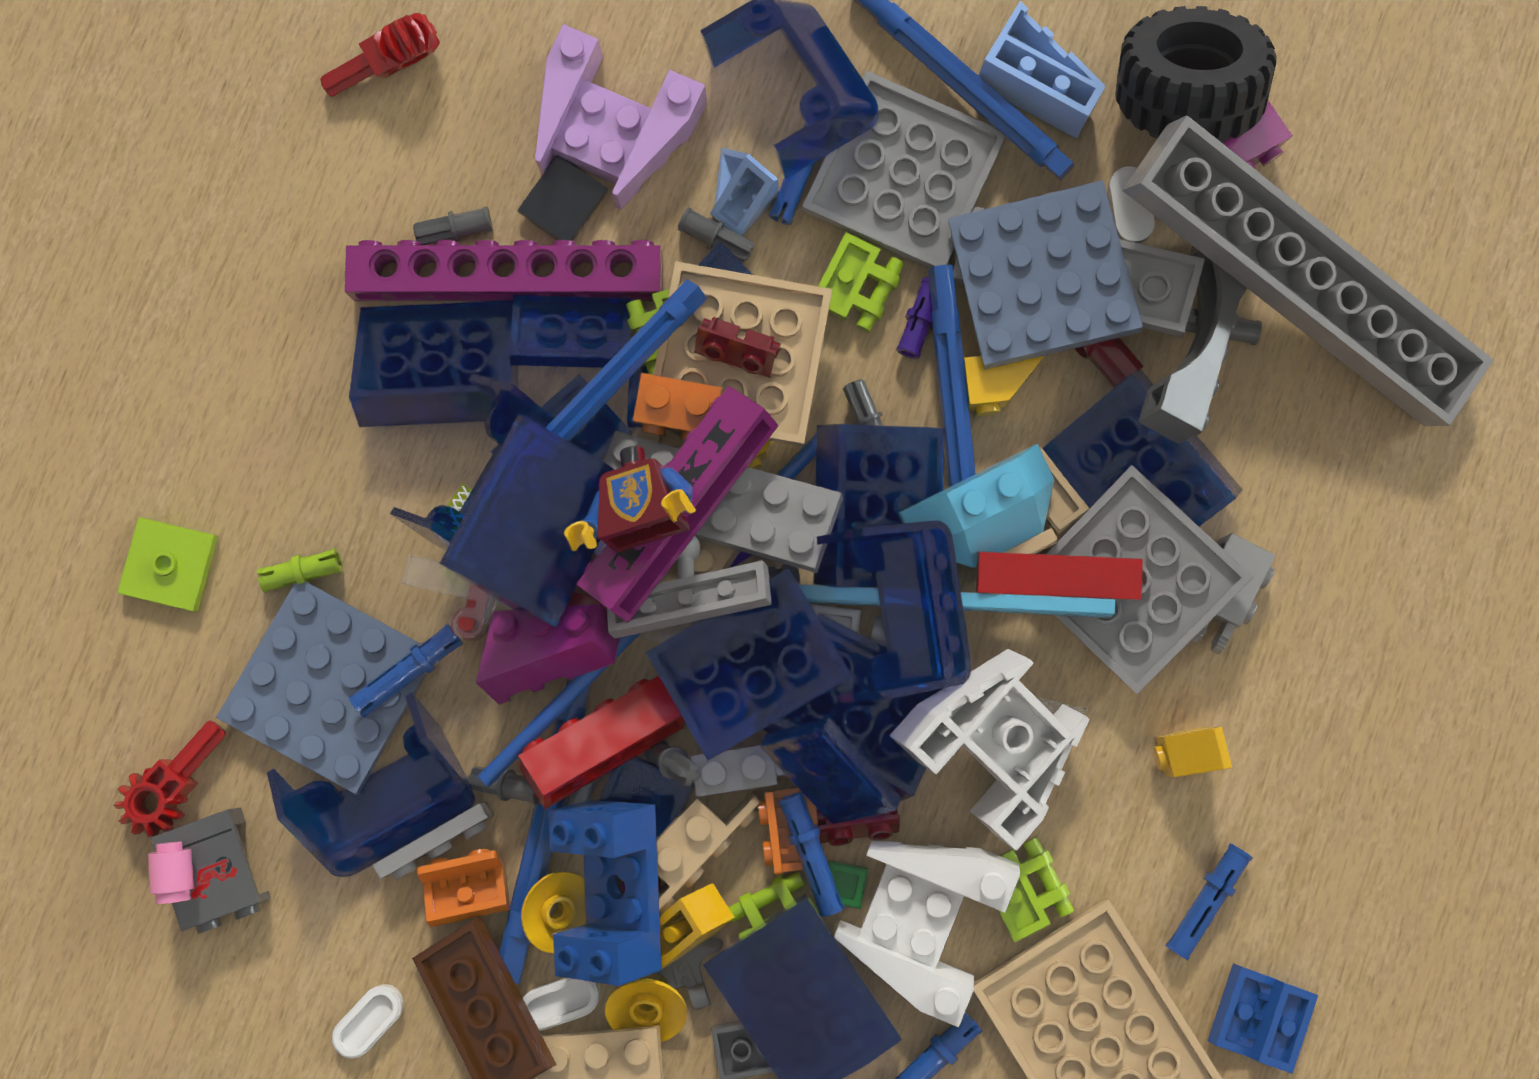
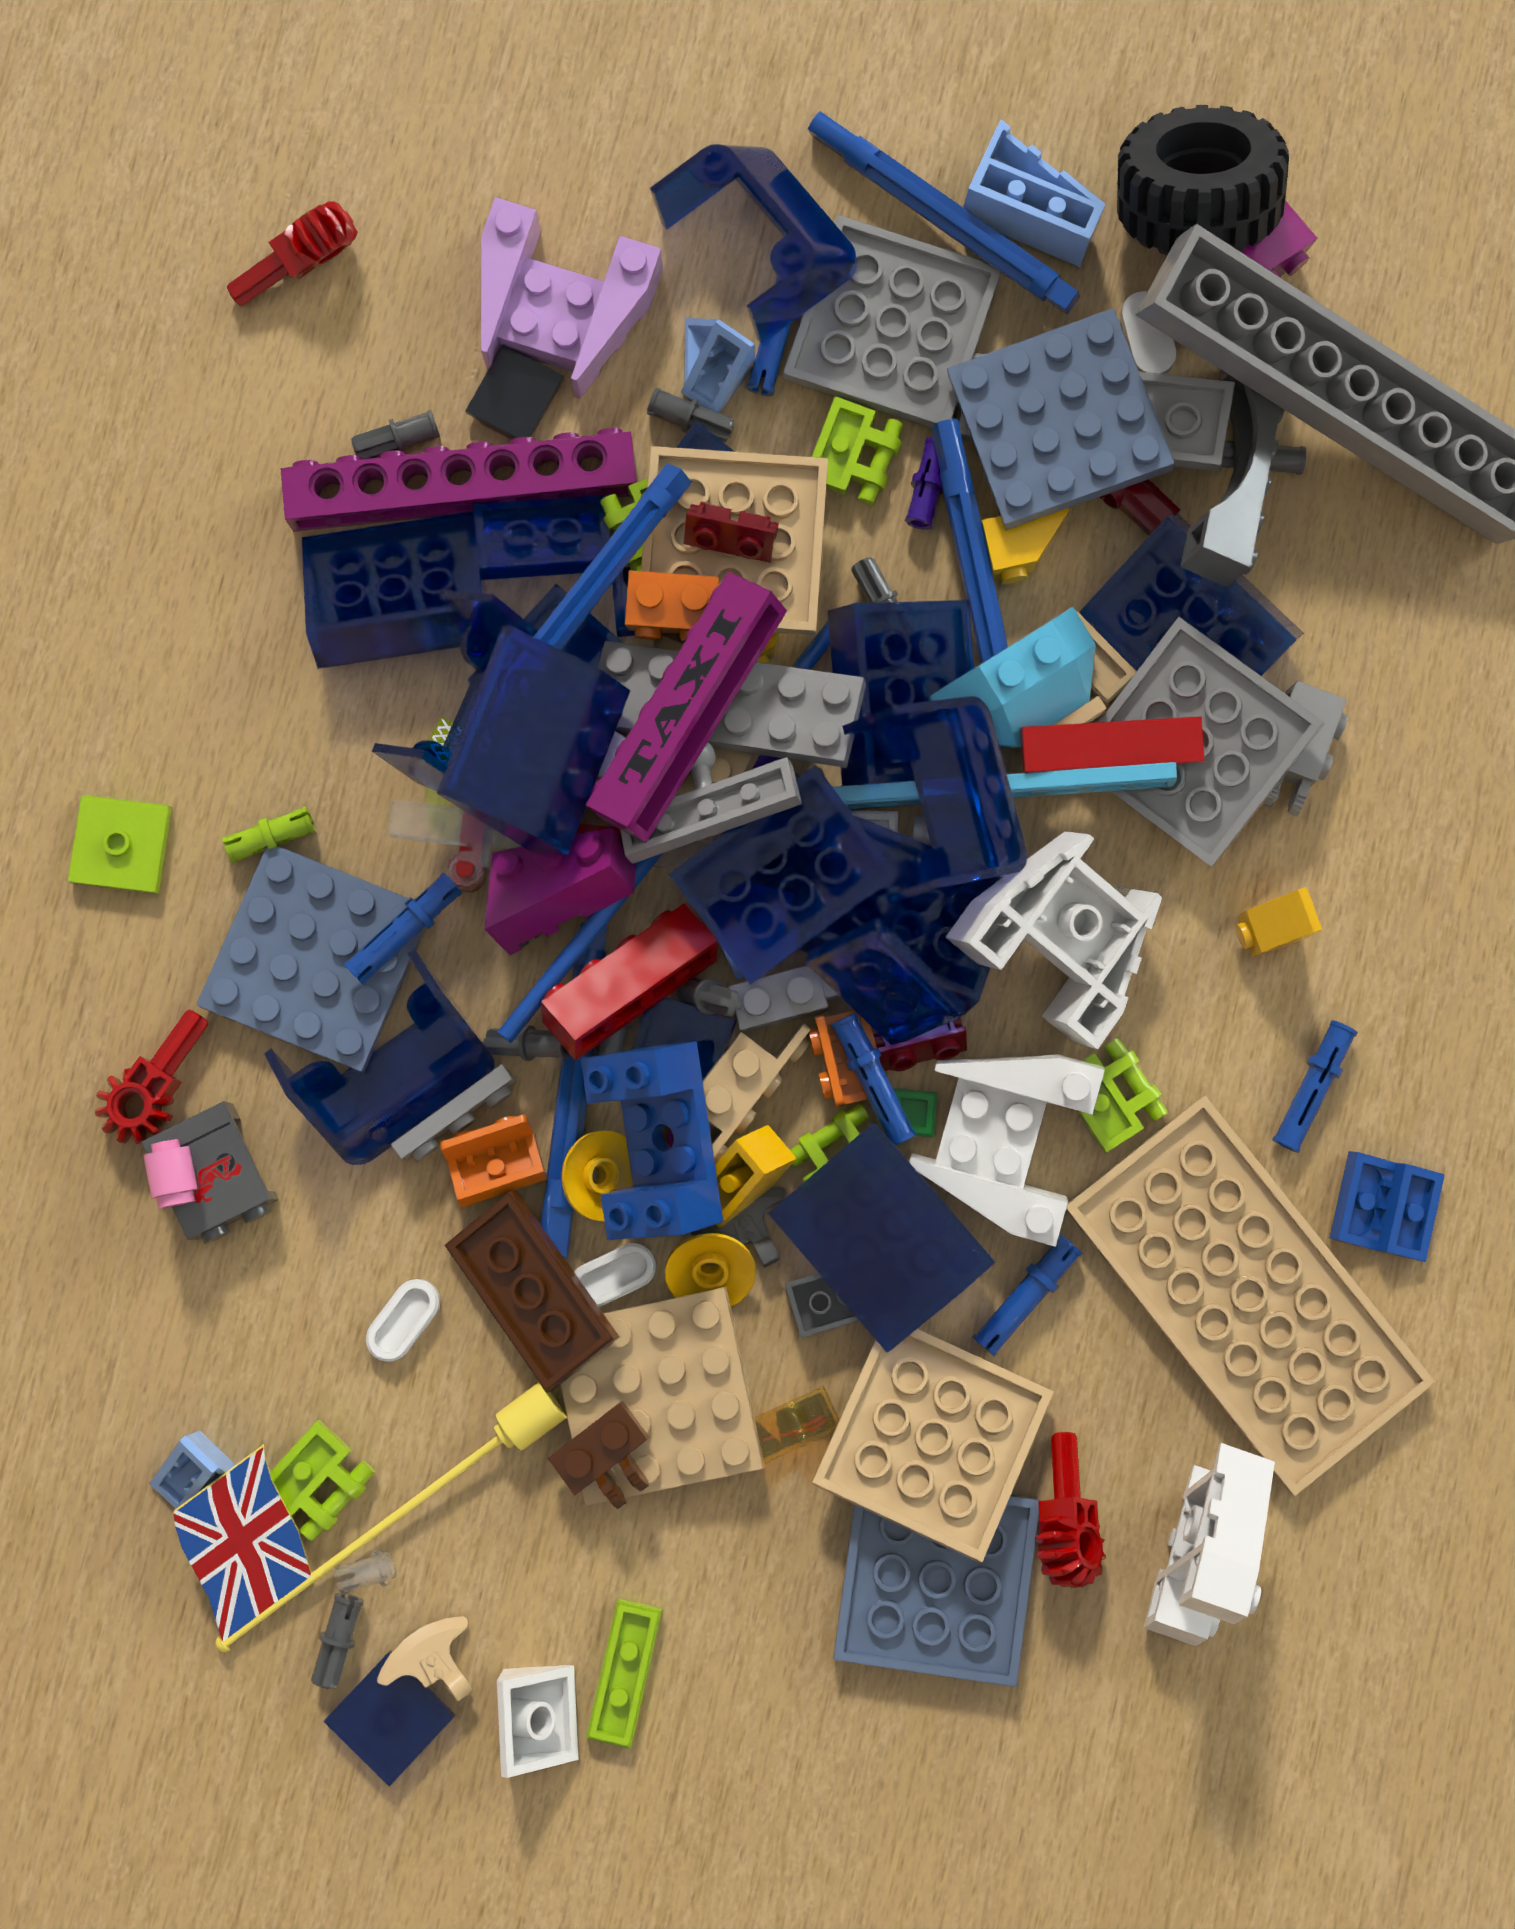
camera: 10 degrees left, 0 degrees up
(634, 505) = (642, 709): torso -> none

